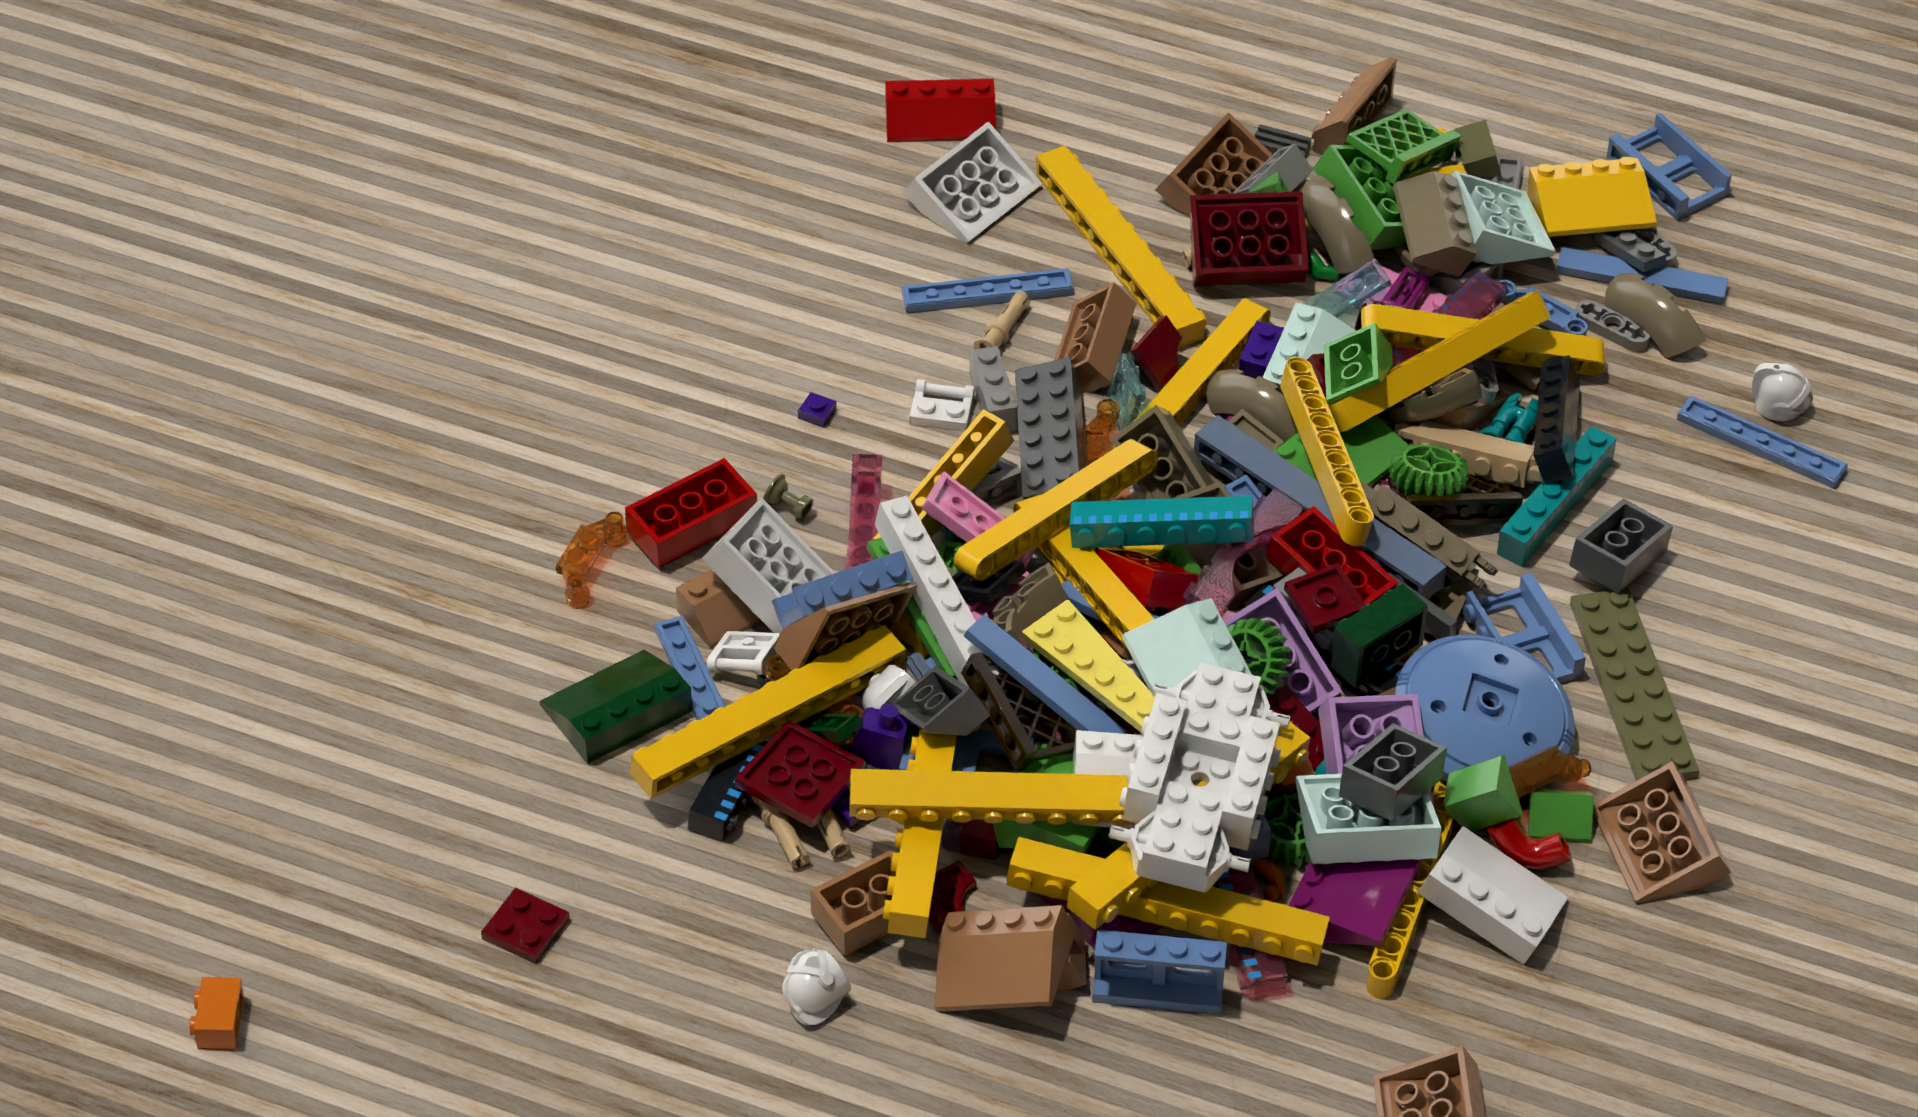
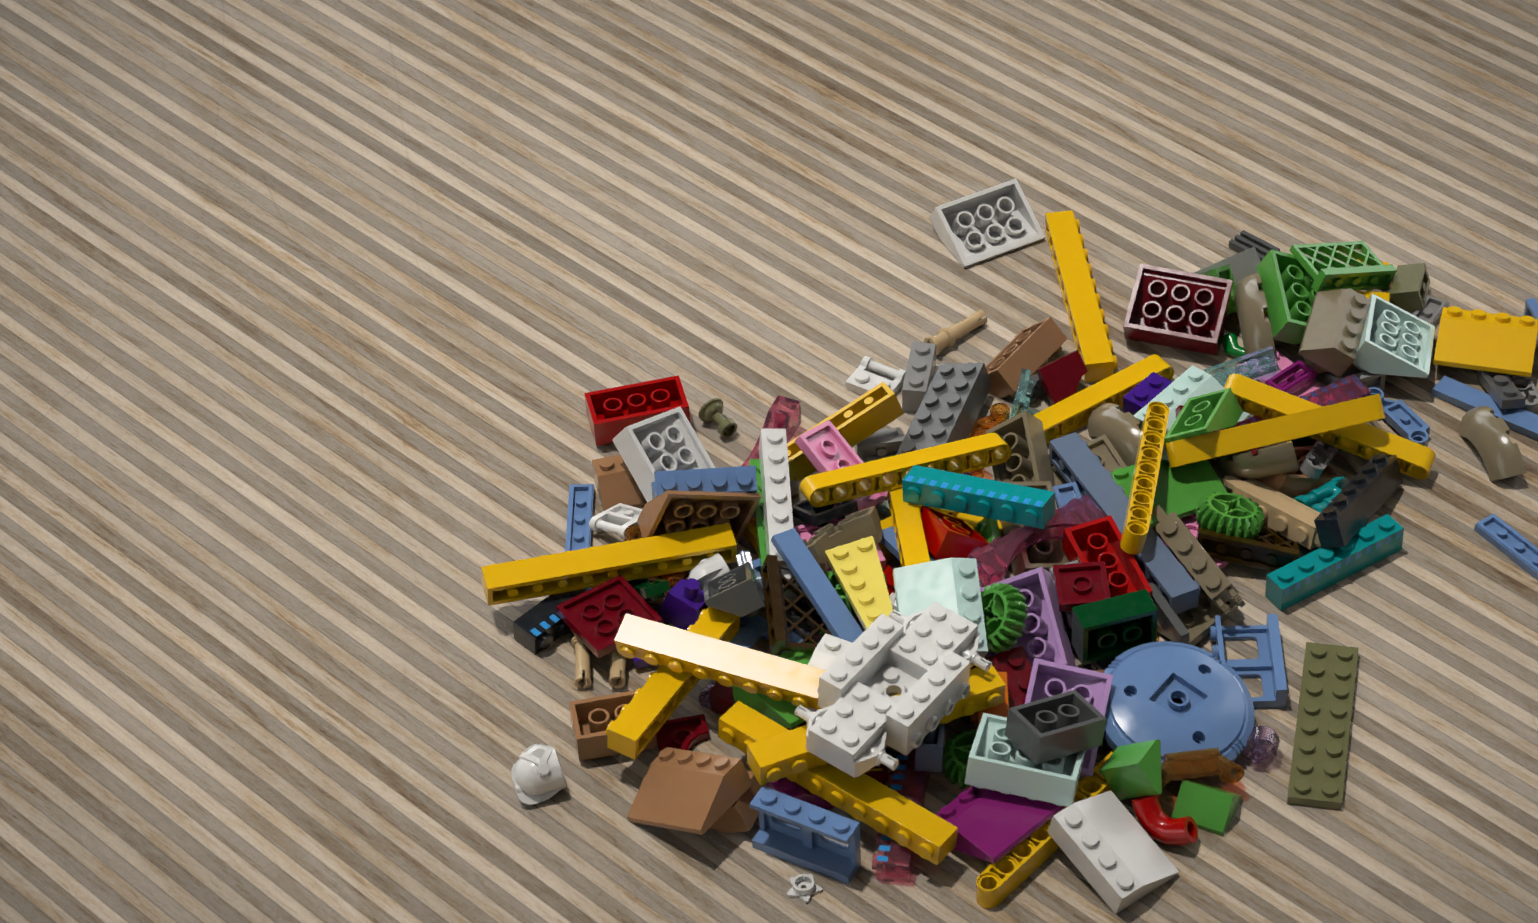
camera: 25 degrees right, 5 degrees down
(218, 1013) = (101, 676): orange brick -> none
(525, 925) = (355, 675): dark red plate -> none
(584, 551) = (545, 419): clear orange plate -> none
(619, 704) = (510, 535): dark green slope -> none
(817, 409) = (779, 361): dark purple plate -> none
(938, 109) = (989, 163): red slope -> none
(986, 290) = (958, 304): medium blue tile -> none
(1178, 1025) = (800, 881): none -> white plate
(1215, 165) = (1188, 247): medium nougat slope -> none
(1275, 876) = (945, 792): orange arm -> none
(1358, 106) = (1341, 226): medium nougat slope -> none
(1588, 728) = (1262, 745): none -> head
(1597, 315) = (1444, 434): light grey beam -> none
(1620, 545) = (1364, 611): dark grey brick -> none
(1660, 836) = (1281, 844): medium nougat slope -> none

